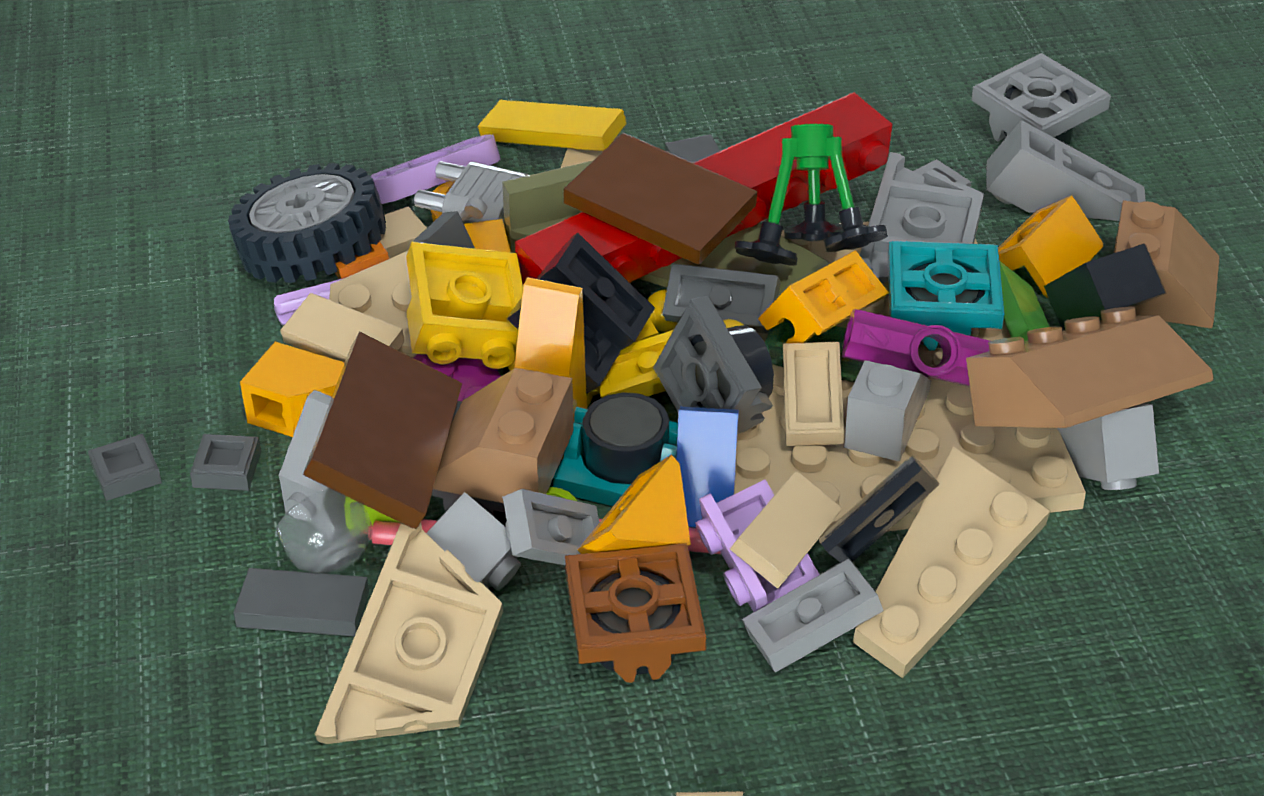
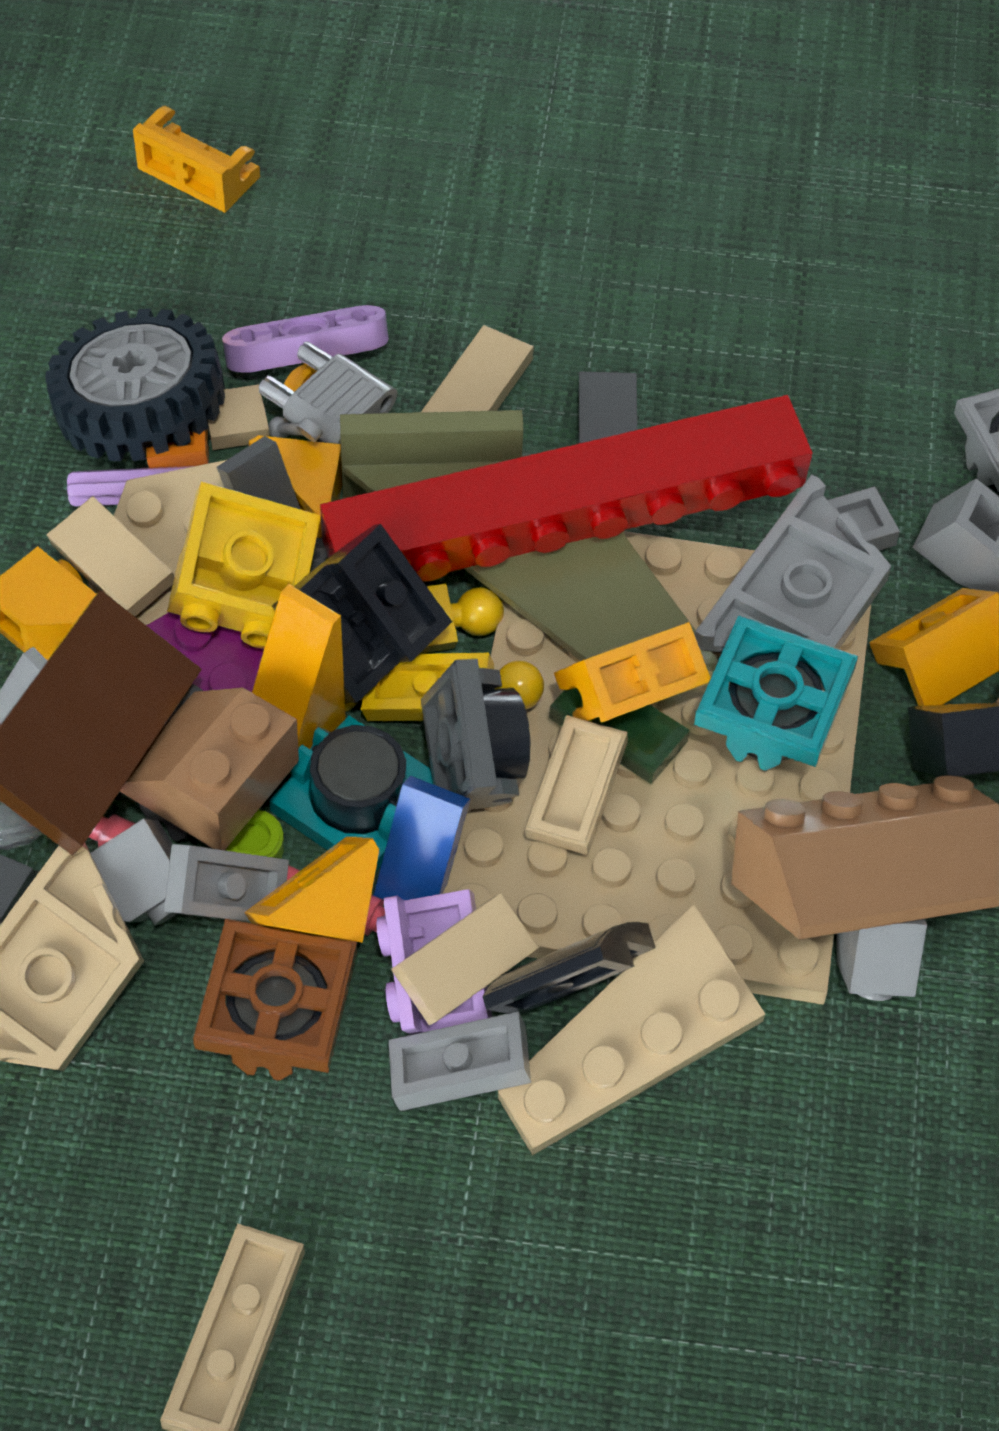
camera: 15 degrees right, 15 degrees up
(285, 82) = (191, 163): none -> light orange hinge
(553, 125) = (460, 312): yellow tile -> none
(660, 198) = (498, 492): reddish brown tile -> none
(733, 293) = (529, 626): dark grey plate -> none
(812, 148) = (689, 483): plant -> none
(884, 409) = (647, 826): light grey slope -> none
(897, 342) = (684, 752): magenta piece -> none
(1020, 304) = (872, 730): bright green tile -> none

